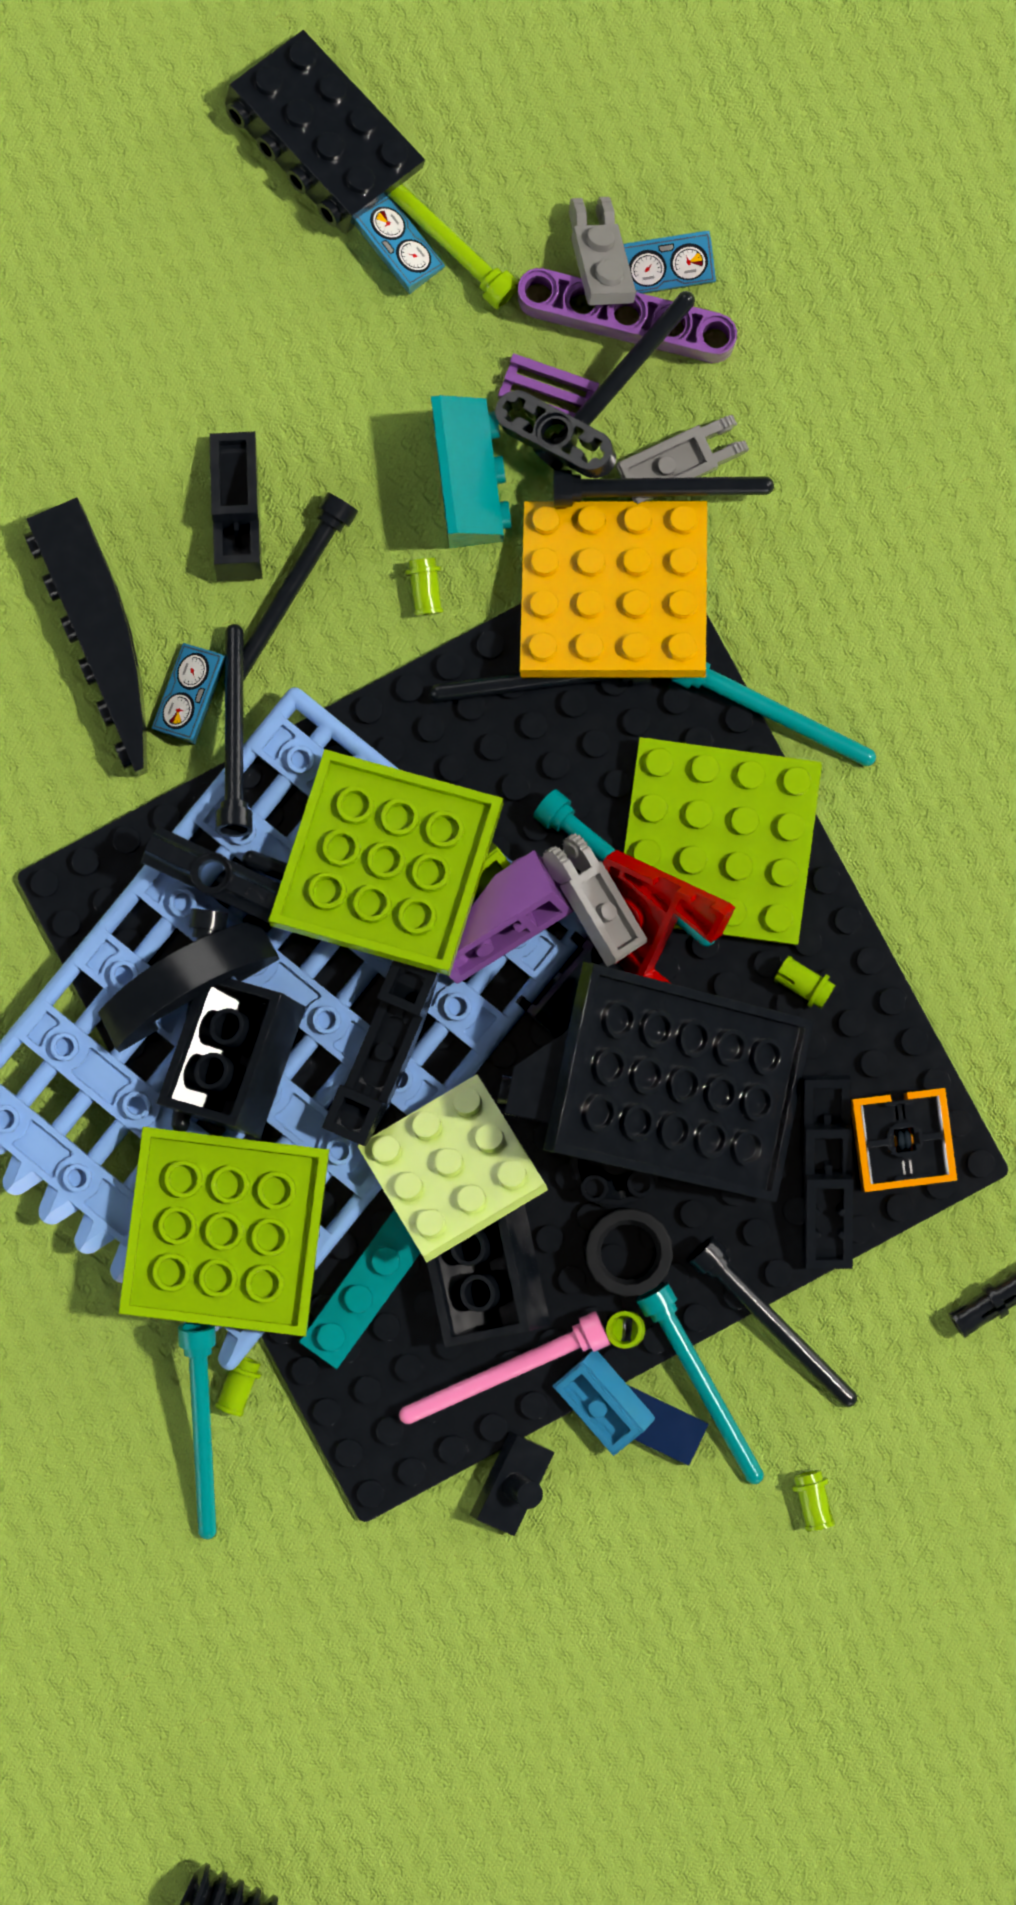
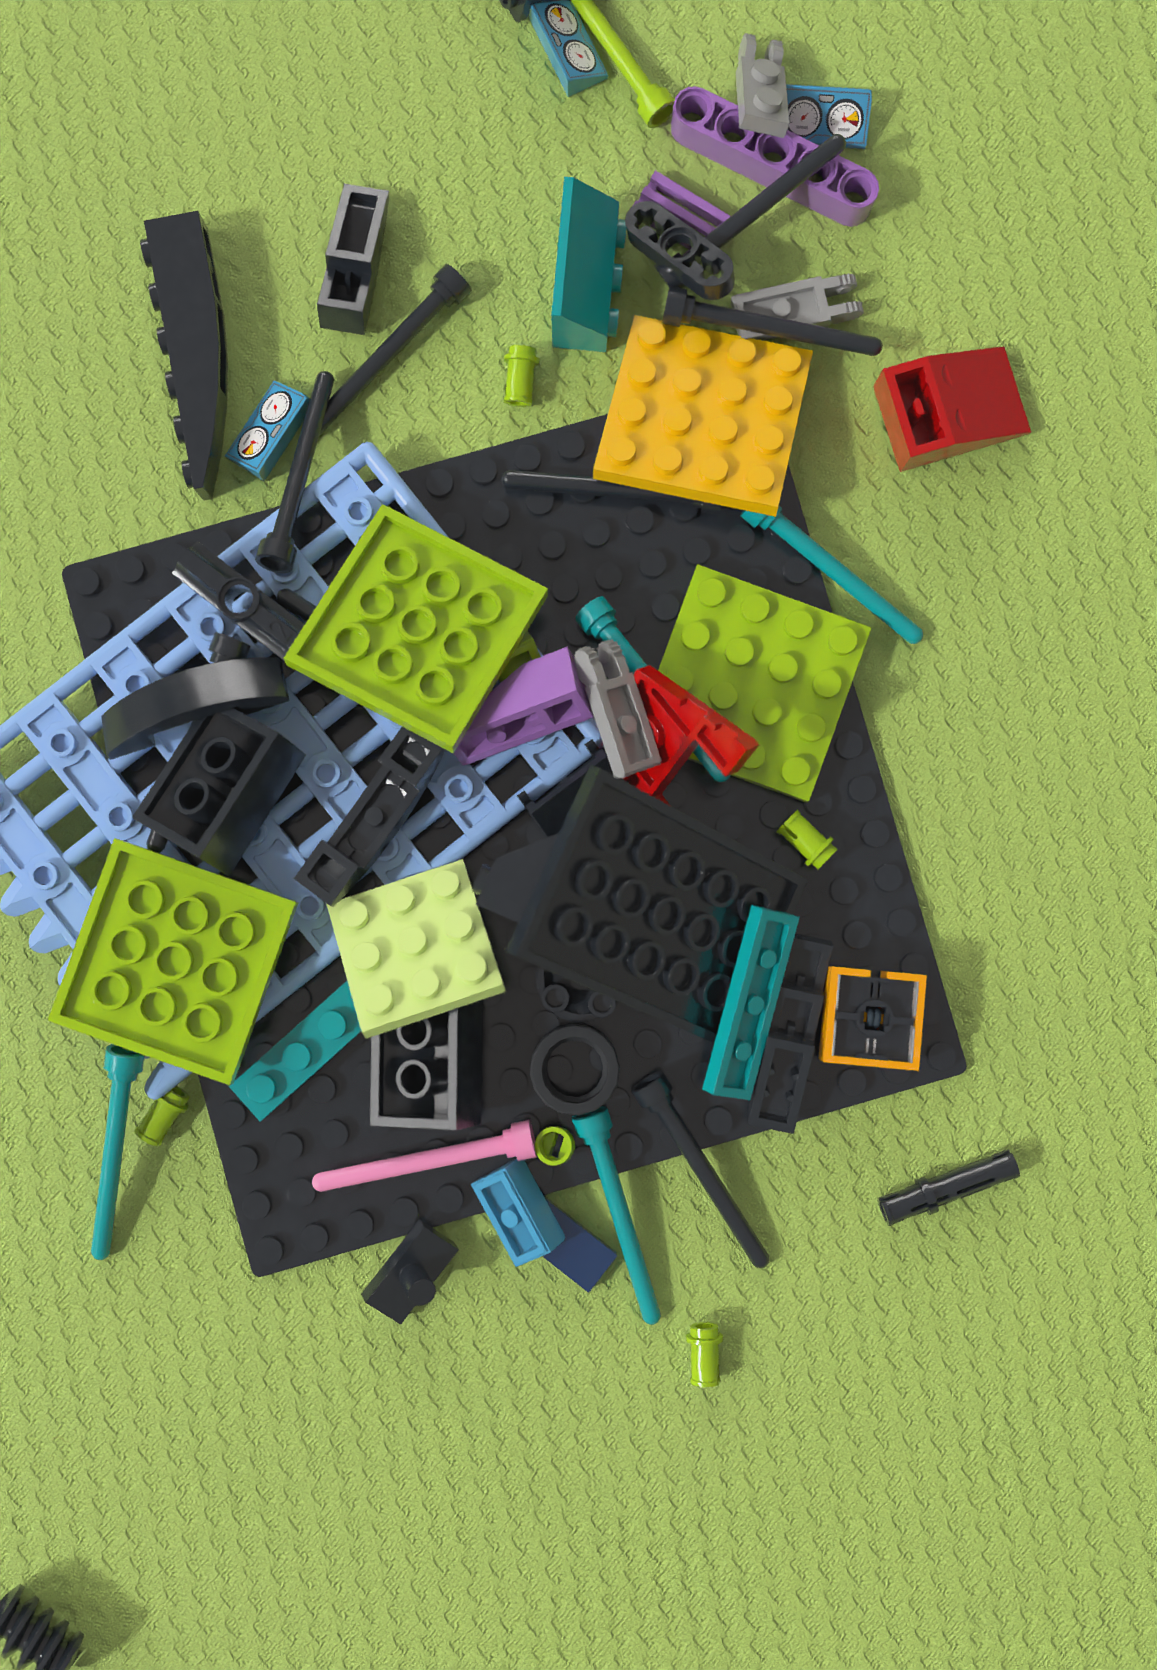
camera: 10 degrees right, 0 degrees up
(783, 1151) = (750, 1003): none -> teal plate
(855, 524) = (949, 405): none -> red slope

